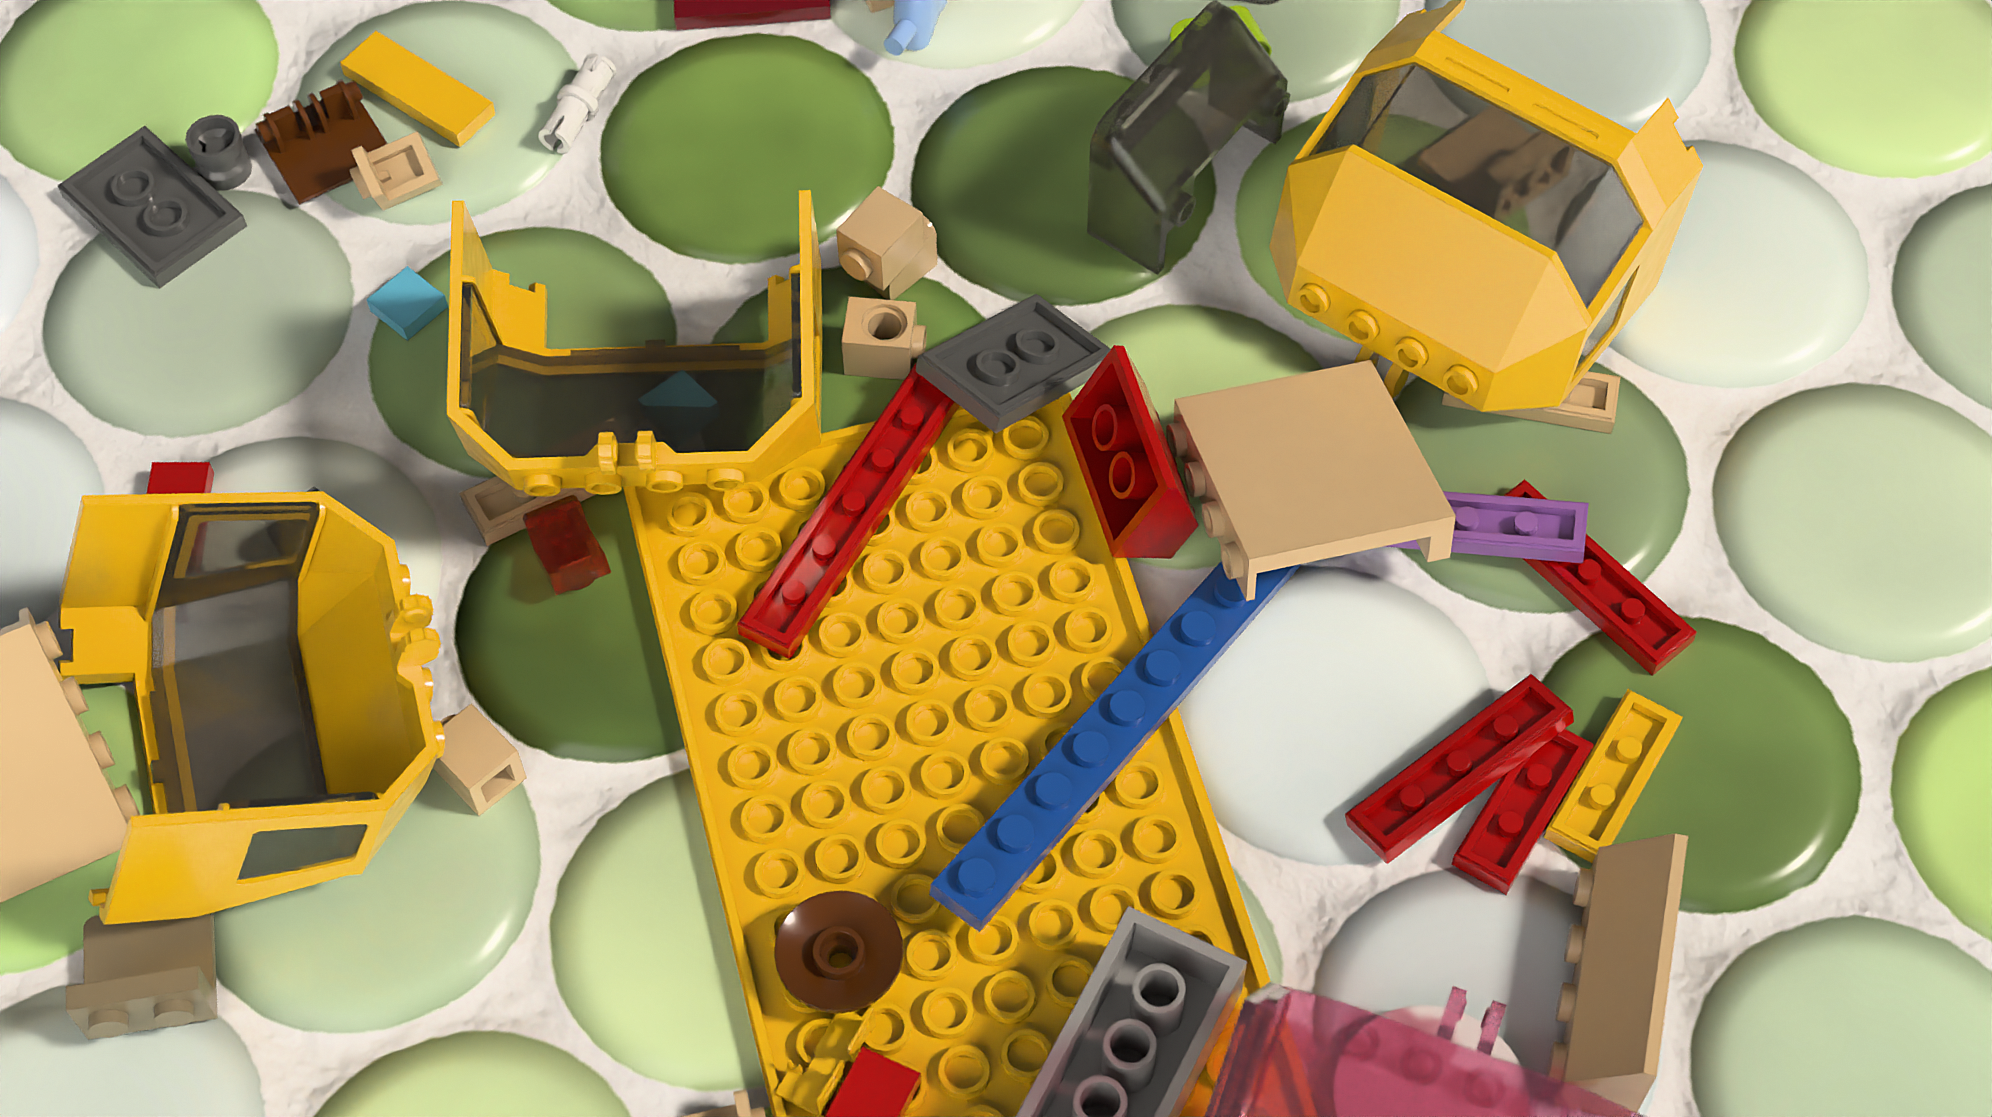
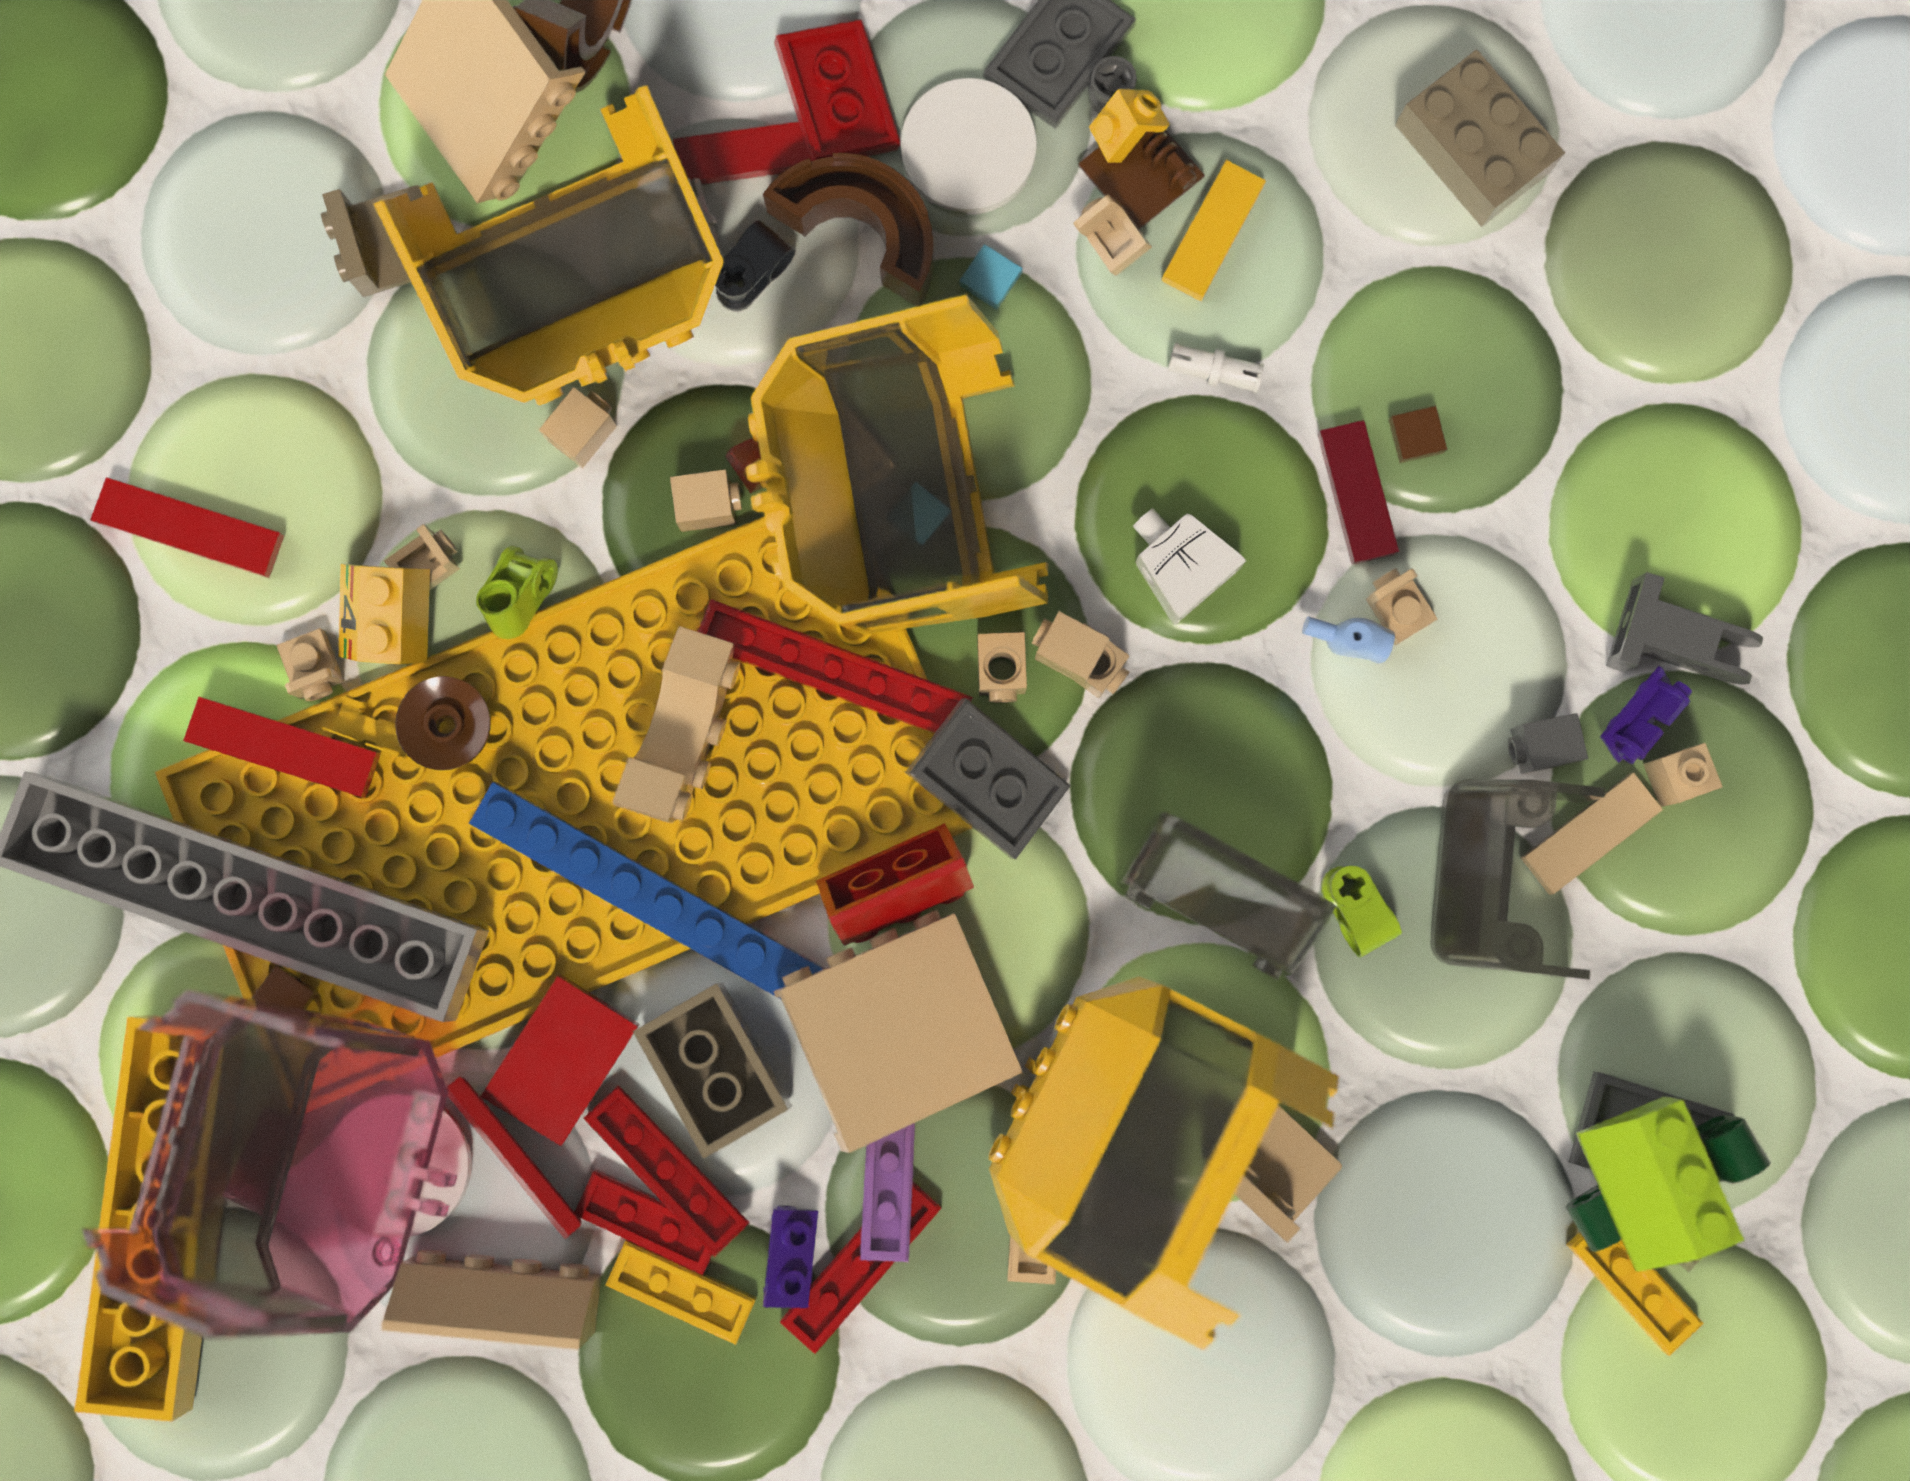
camera: 80 degrees right, 25 degrees up
(127, 427) = (837, 91): none -> red tile
(240, 306) = (968, 146): none -> white tile
(269, 134) = (1125, 121): none -> yellow bracket
(294, 378) = (870, 193): none -> reddish brown brick
(607, 626) = (705, 500): none -> tan brick
(608, 967) = (427, 551): none -> tan bracket
(669, 1023) = (384, 614): none -> yellow slope
(672, 848) = (520, 587): none -> lime piece
(798, 149) = (1183, 562): none -> white torso
(894, 662) = (682, 728): none -> tan brick
(1306, 875) = (560, 1060): none -> red tile
(1336, 687) = (712, 1069): none -> dark tan brick
(1437, 938) = (513, 1157): none -> red tile
(1603, 645) = (790, 1257): none -> dark purple hinge

